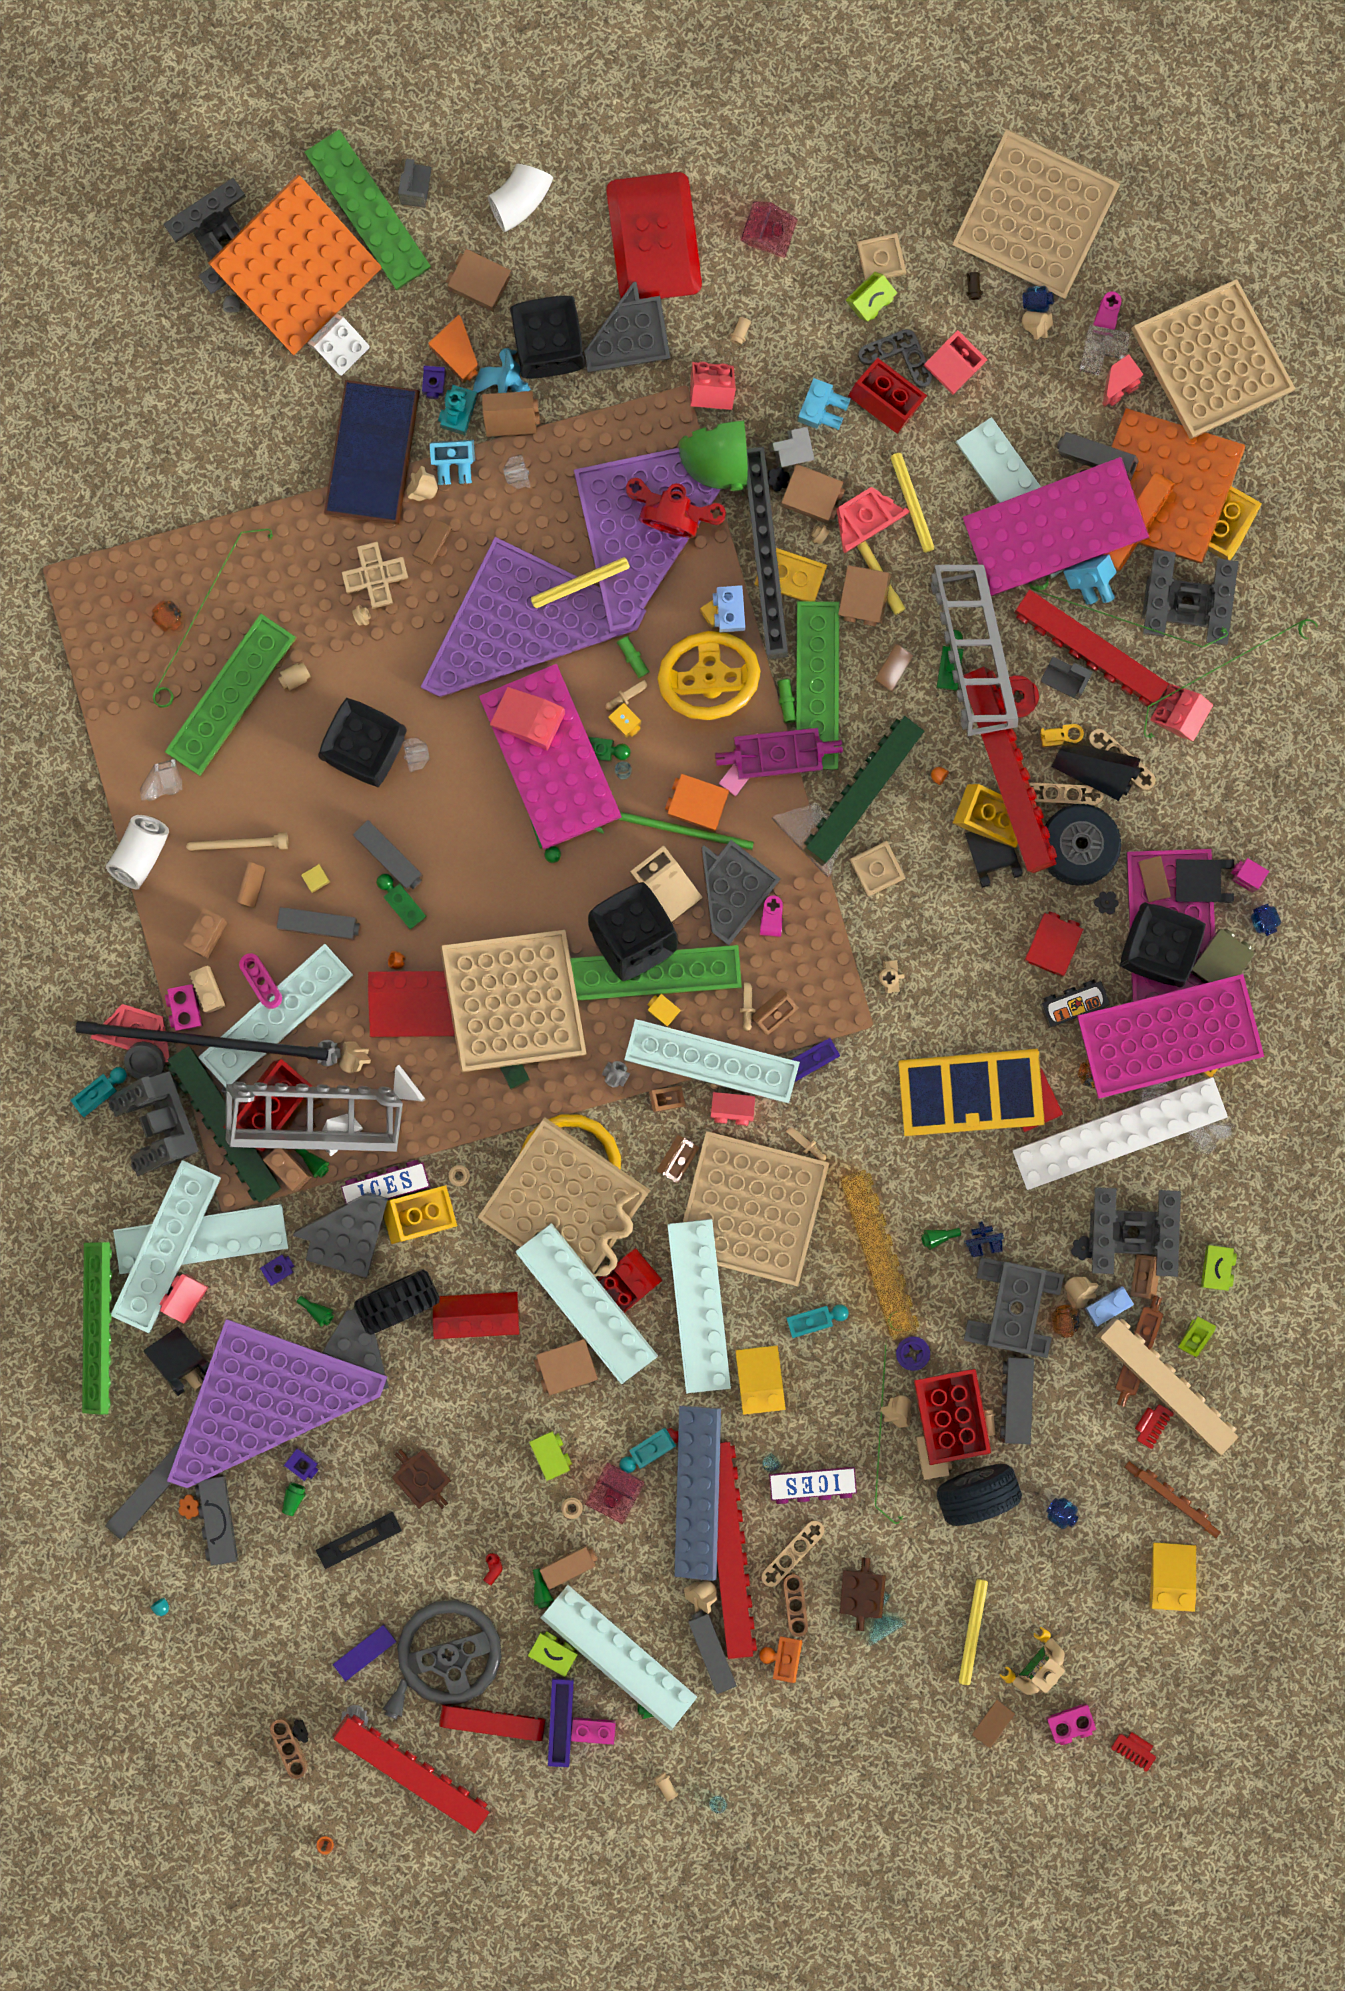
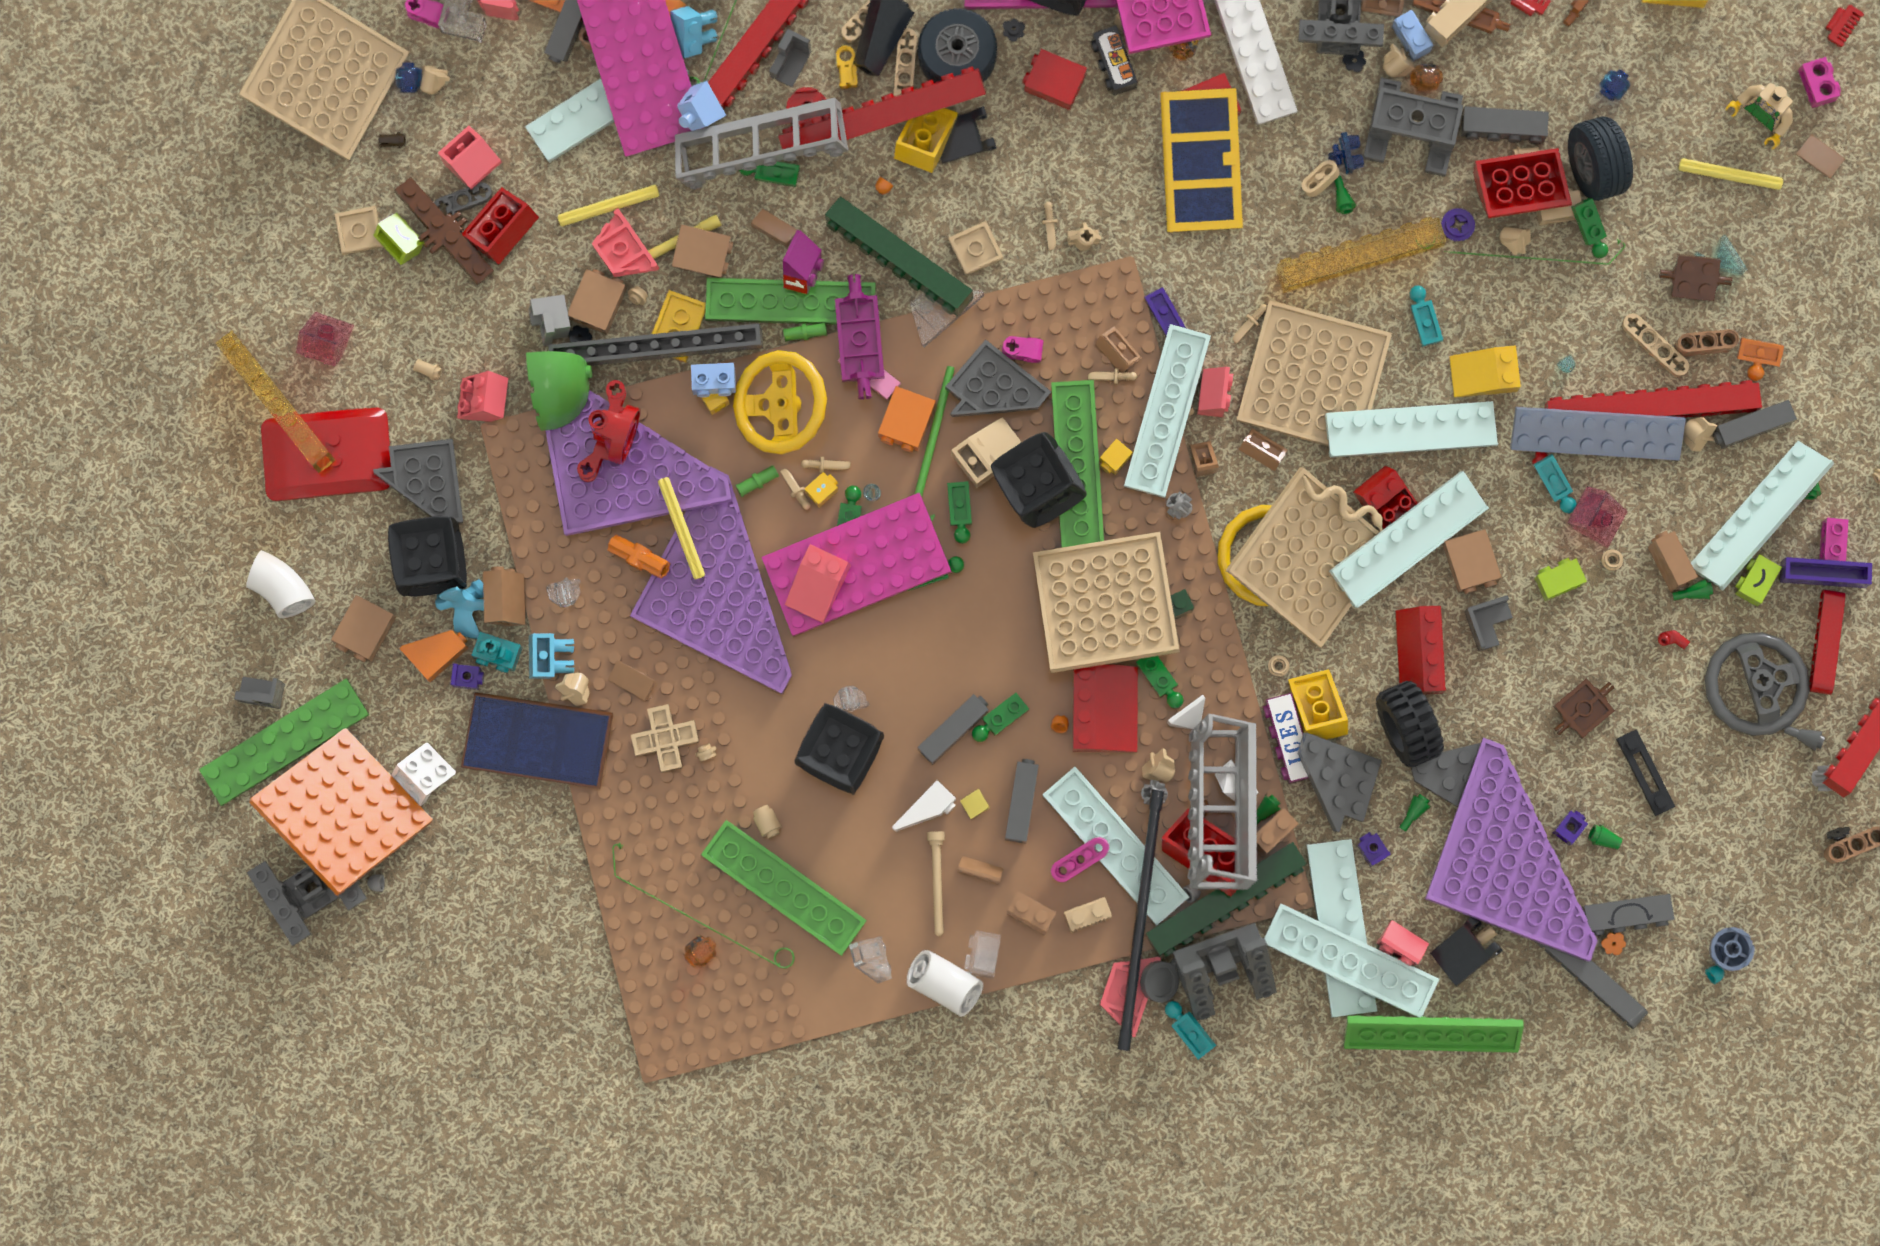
camera: 85 degrees left, 5 degrees down
(165, 889) = (983, 955): none -> clear brick
(181, 1621) = (1731, 949): none -> sand blue cylinder
(189, 1006) = (1104, 933): dark pink brick -> none
(313, 836) = (928, 806): none -> white slope
(364, 1652) = (1758, 768): dark purple tile -> none
(437, 1060) = (1161, 680): none -> green plate
(506, 1377) = (1483, 617): none -> dark grey panel
(552, 543) = (638, 556): none -> orange piece
(607, 857) = (960, 510): none -> green plate
(651, 724) = (824, 464): none -> tan piece
(701, 182) = (275, 401): none -> clear yellow brick
(812, 1483) = (1587, 323): white brick -> none
(813, 409) = (505, 296): medium azure brick -> none
(852, 694) = (801, 264): none -> magenta slope
(879, 340) = (443, 231): none -> reddish brown hinge
(904, 942) = (1050, 228): none -> tan piece
(911, 1487) = (1591, 227): none -> green plate
(957, 1213) = (1320, 178): none -> tan plate
(1010, 587) = (699, 107): none -> light blue torso

